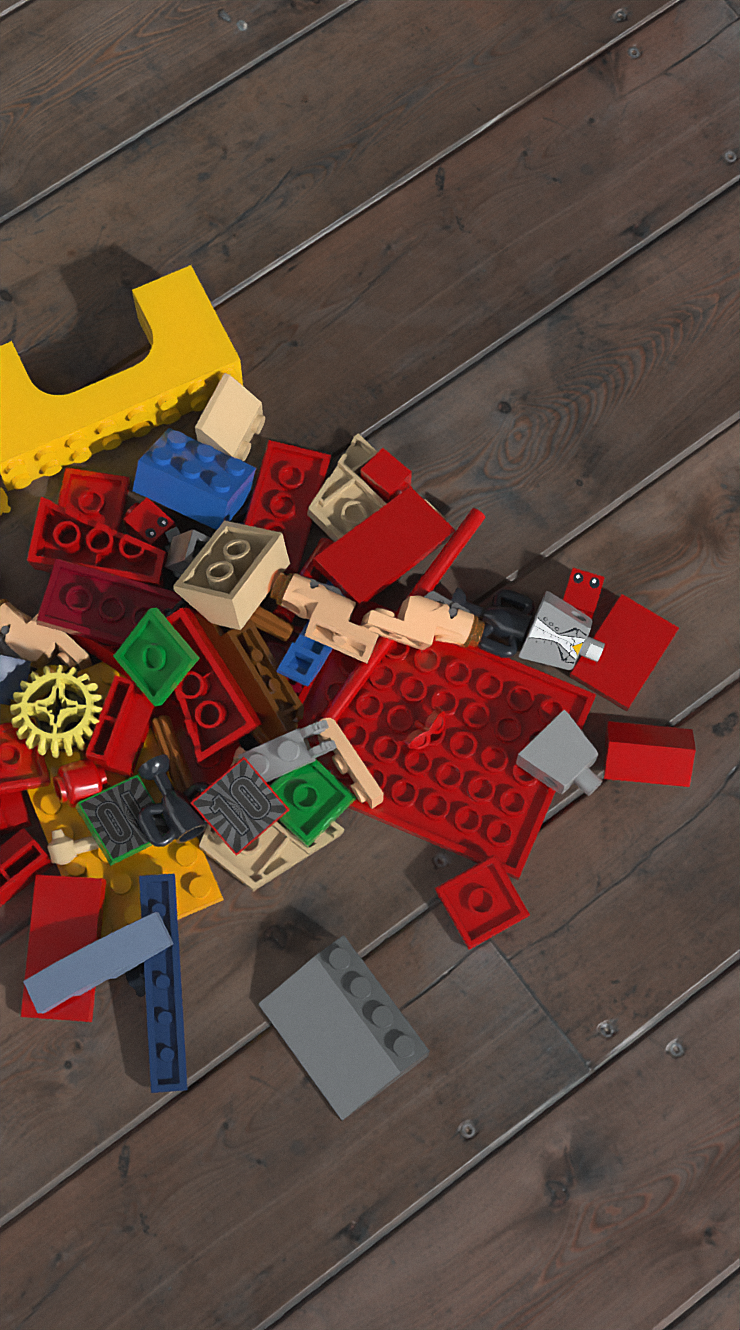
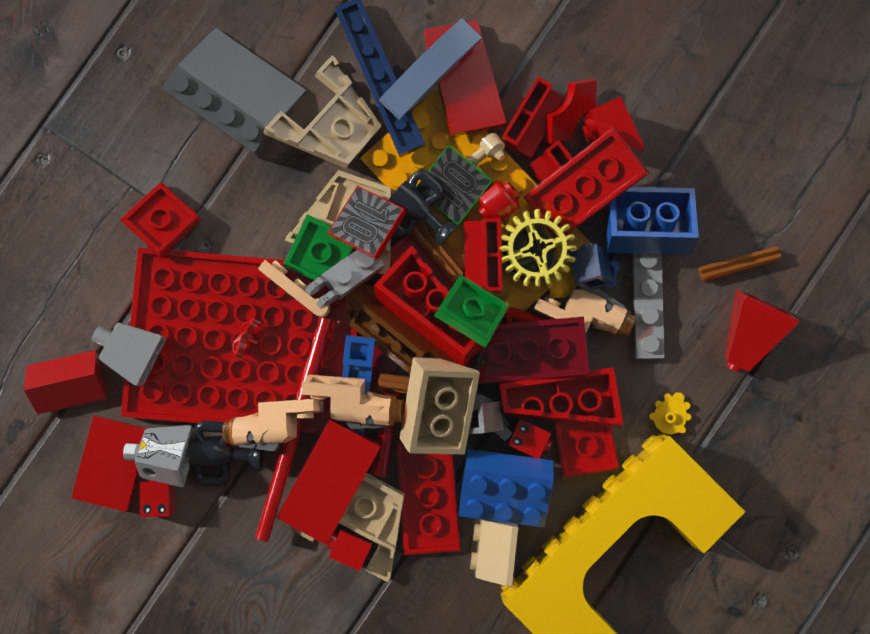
camera: 160 degrees right, 15 degrees up
(233, 936) = (338, 129): none -> tan wing

